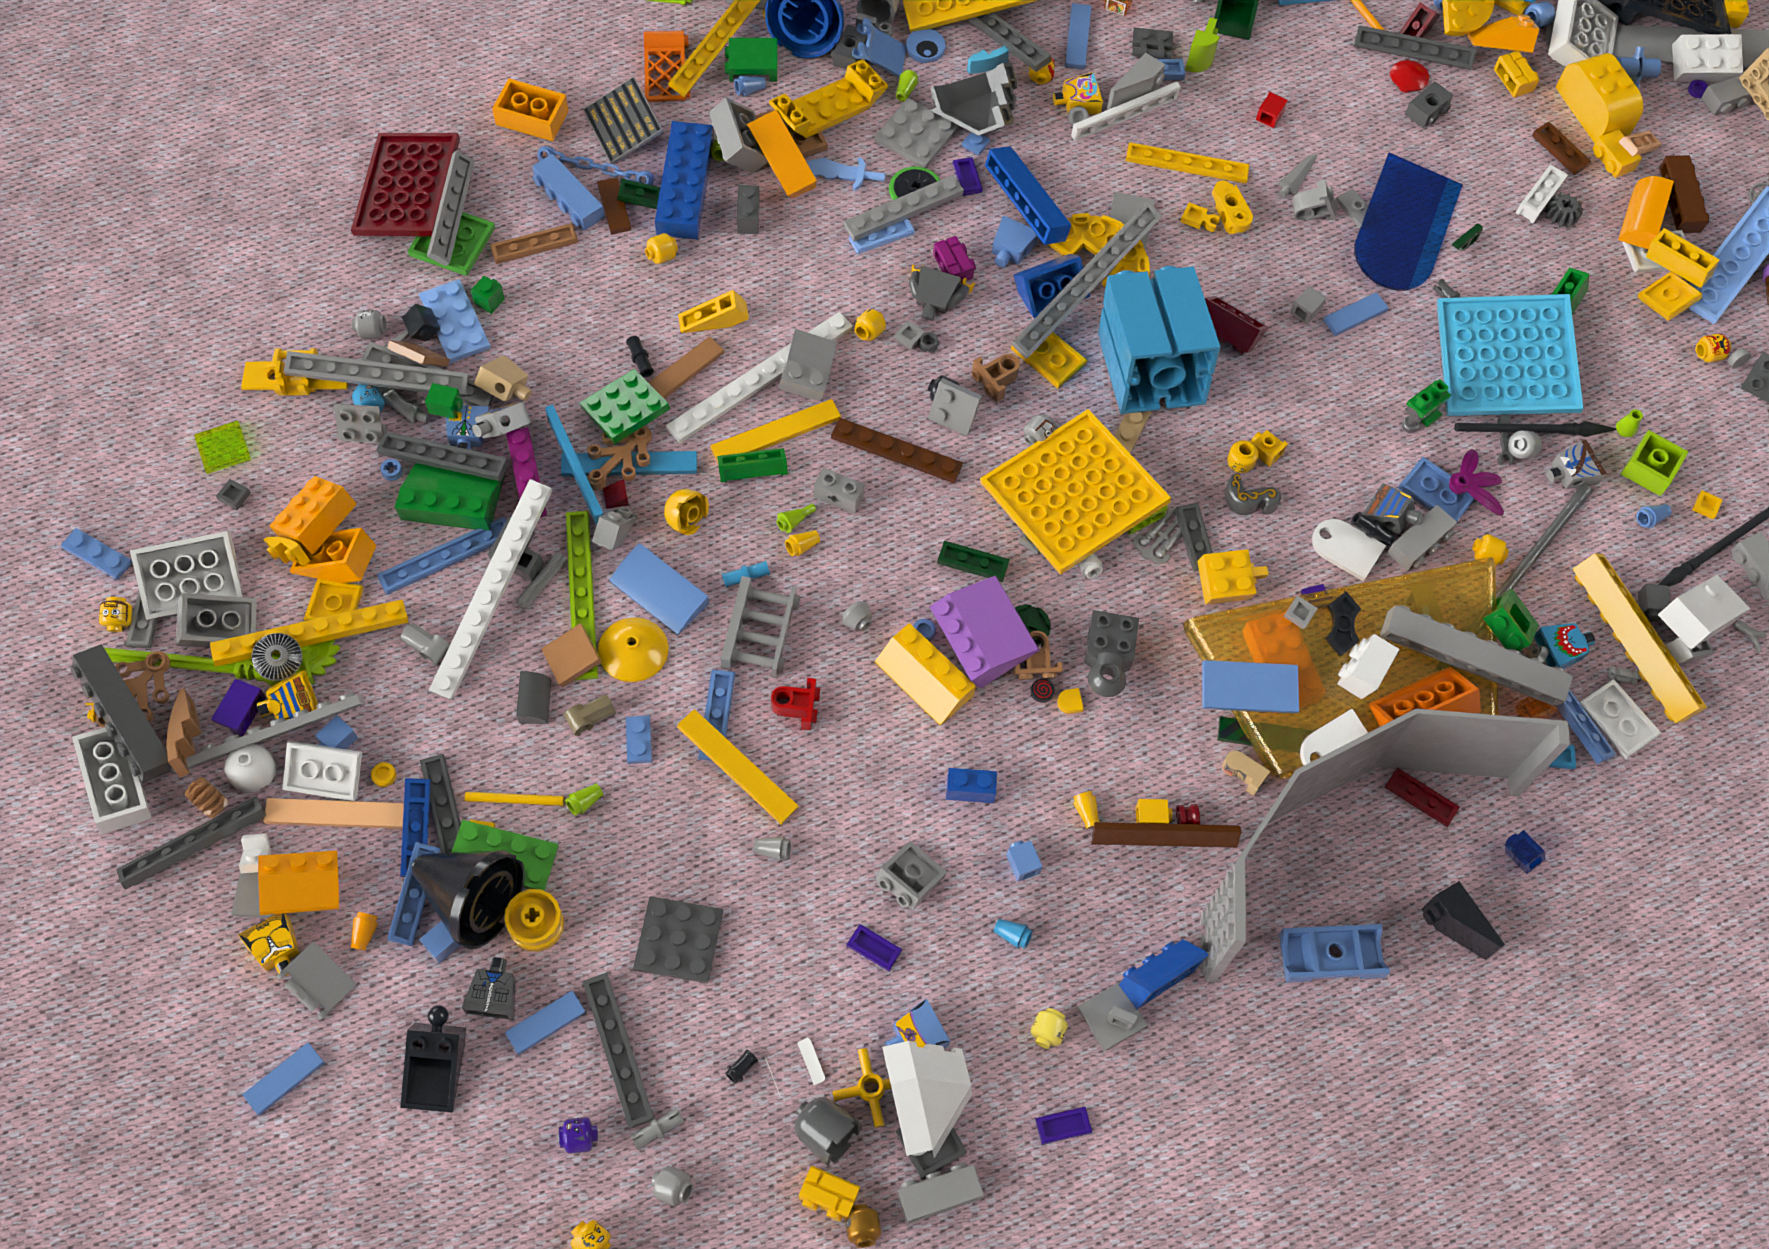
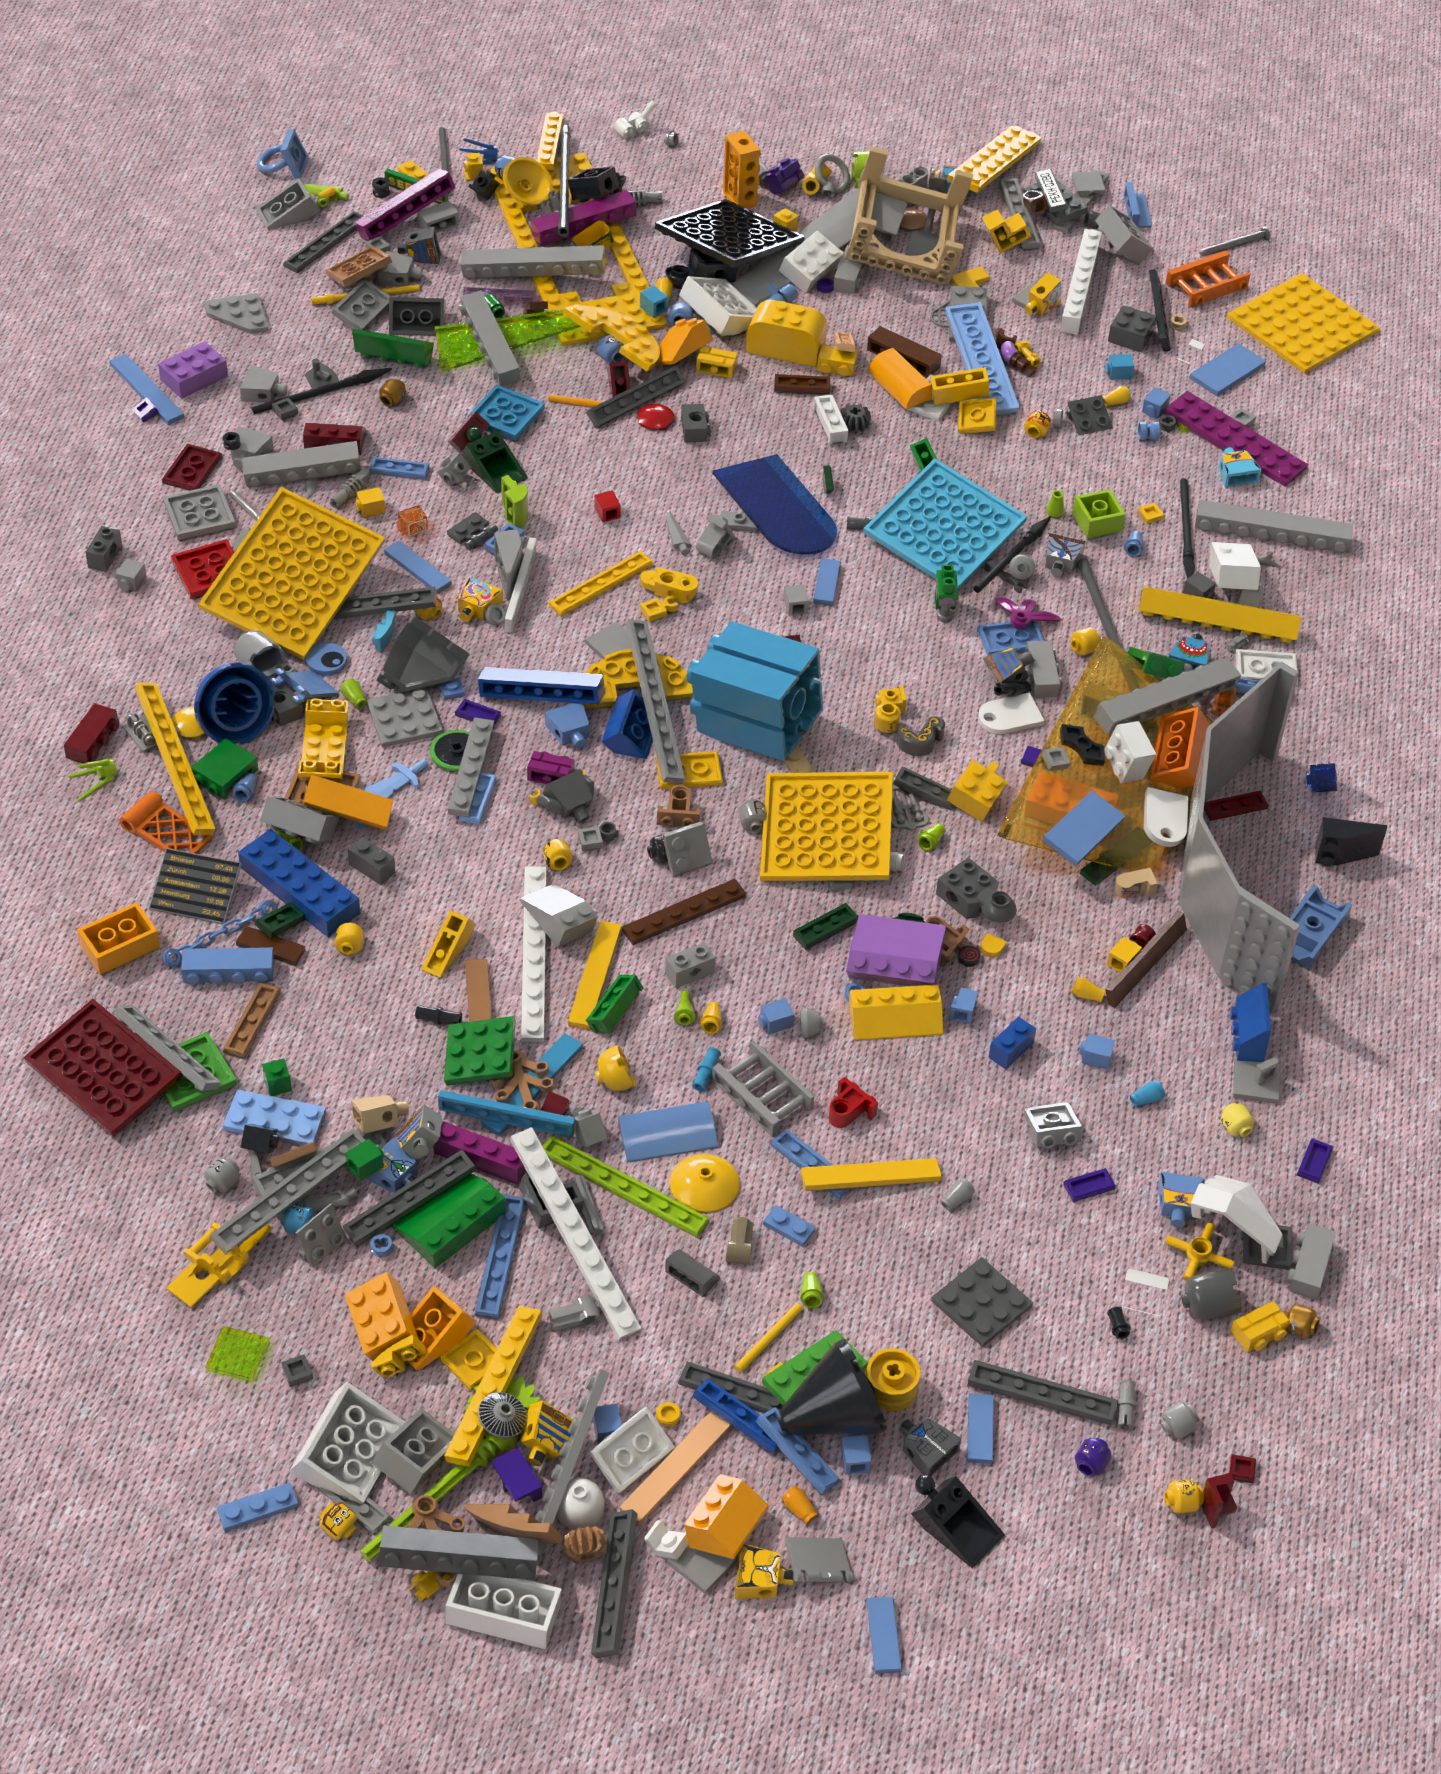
camera: 50 degrees left, 15 degrees down
(571, 655) = (677, 1221): medium nougat tile -> none
(842, 587) = (776, 1016): none -> medium blue brick
(980, 721) = (963, 1006): none -> medium blue brick
(1145, 576) = (931, 837): none -> lime cone

